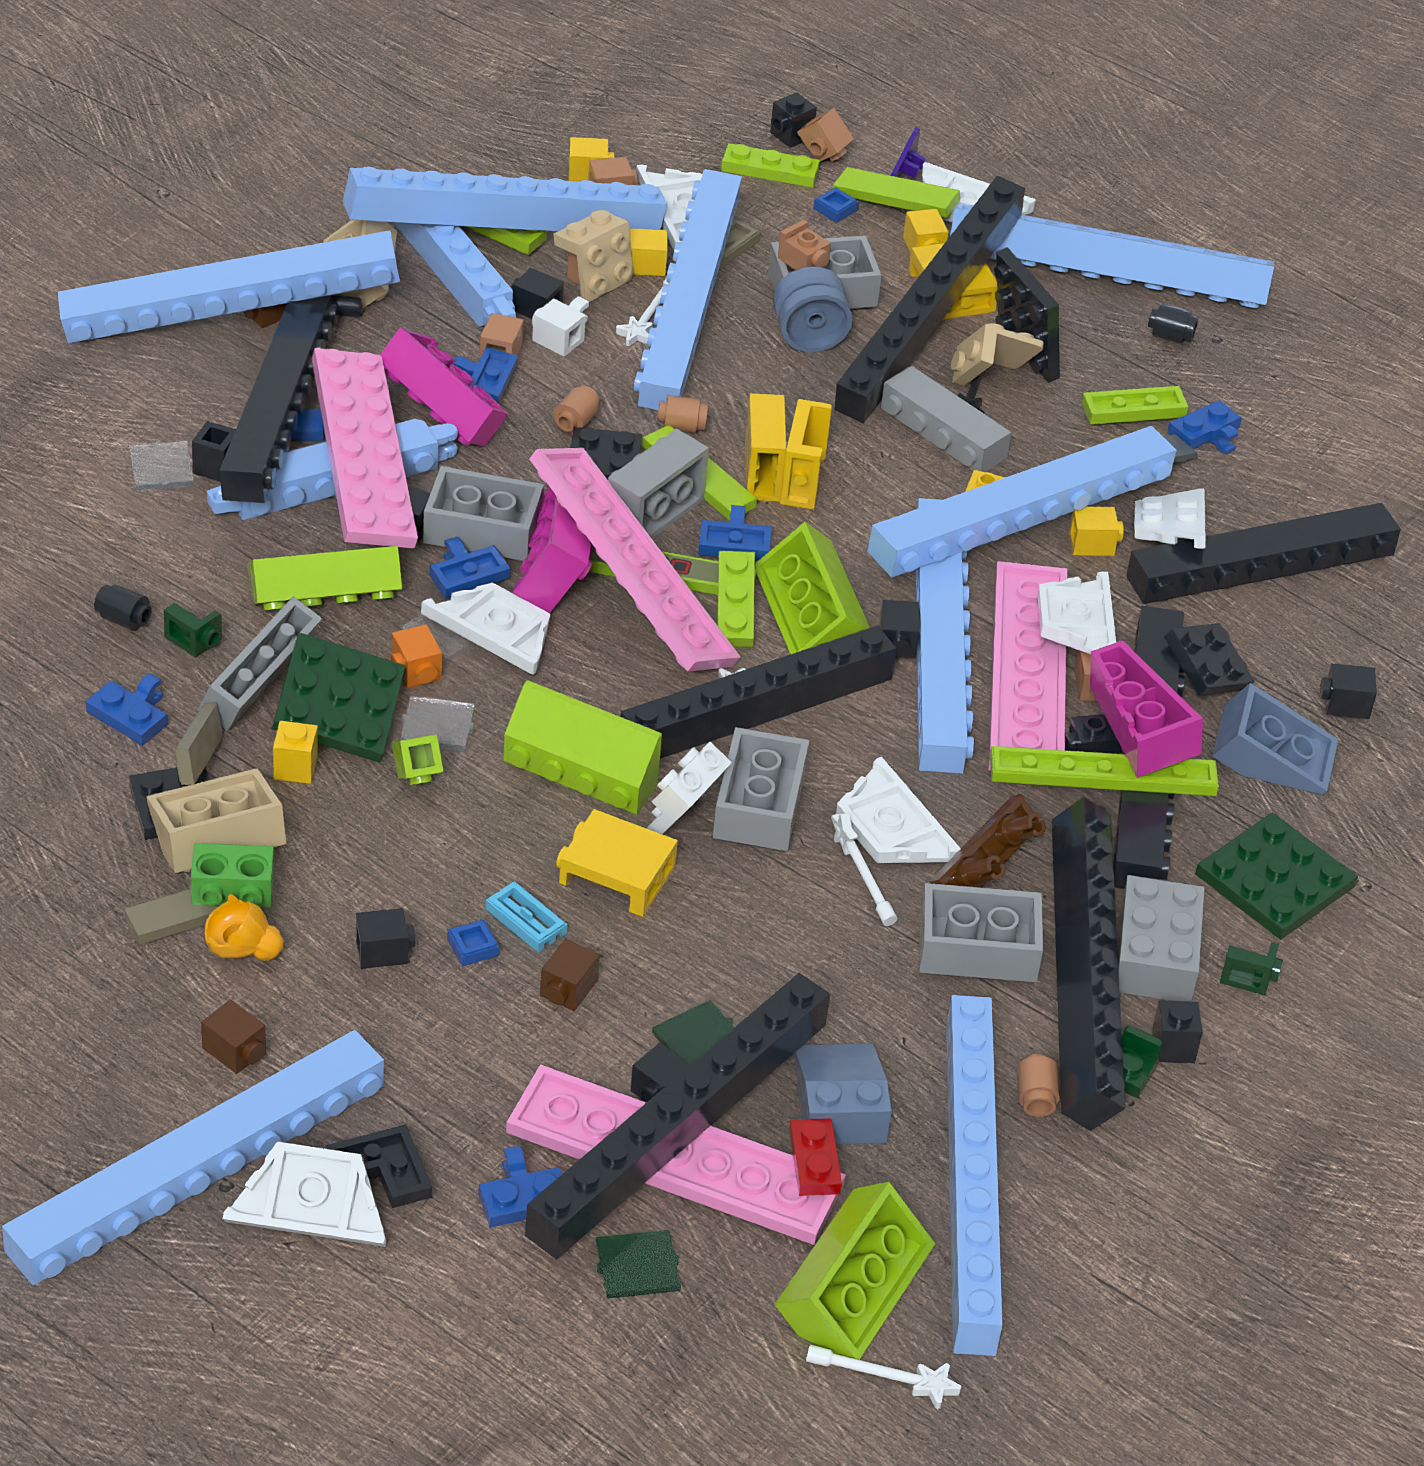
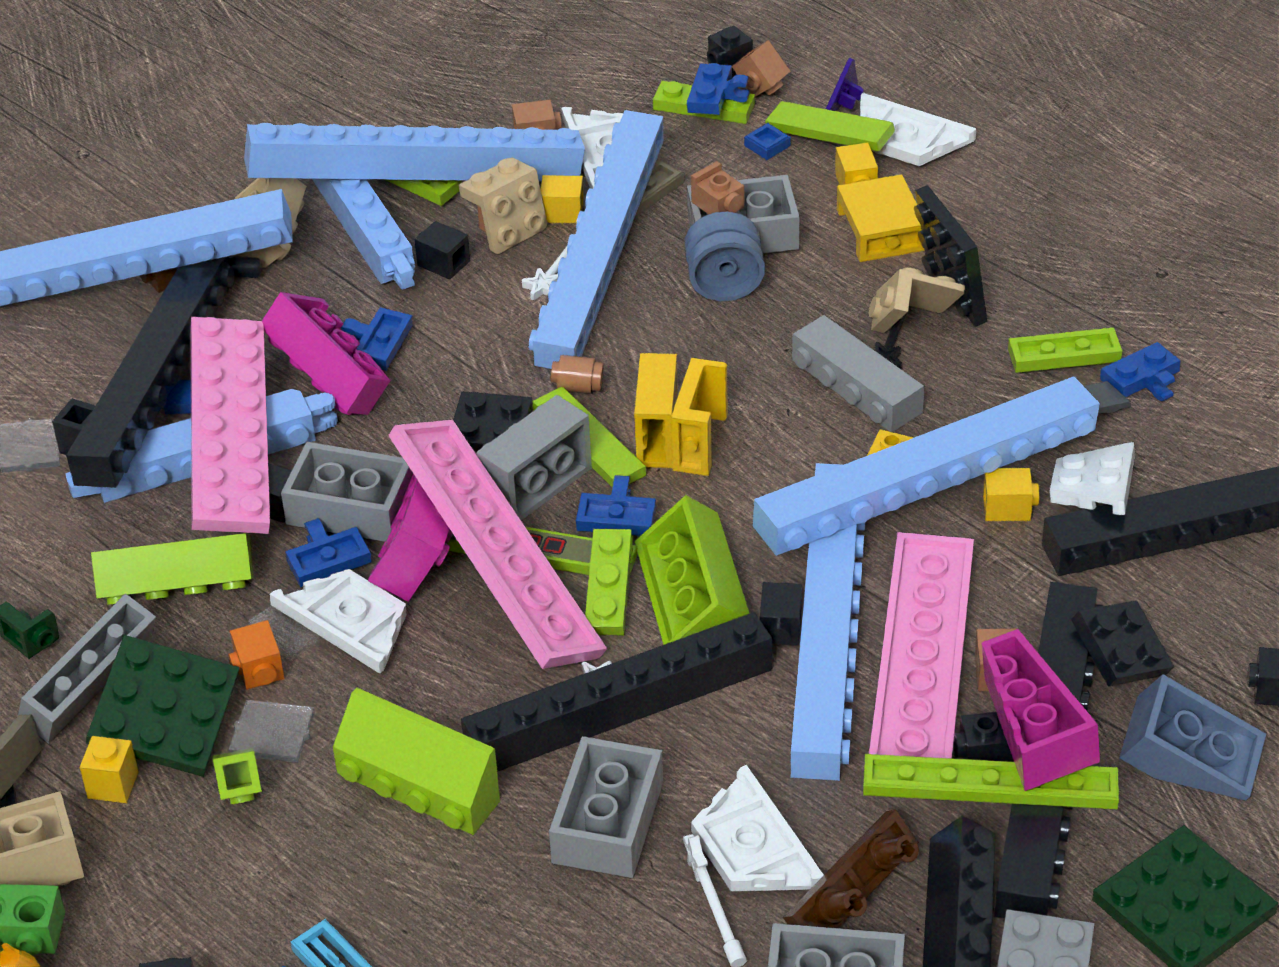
camera: 10 degrees right, 0 degrees up
(502, 334) = (399, 293): nougat brick -> none
(560, 325) = (462, 281): white brick -> none
(576, 408) = (466, 371): nougat brick -> none
(581, 152) = (511, 93): yellow brick -> none
(619, 858) = (442, 892): yellow panel -> none
(684, 788) = (517, 810): white plate -> none
(781, 151) = (713, 86): none -> blue plate
(929, 298) = (847, 241): black brick -> none
(1077, 613) = (977, 593): white wing -> none
(1135, 258) = (1055, 186): light blue brick -> none
(1173, 323) = (1113, 258): black brick -> none

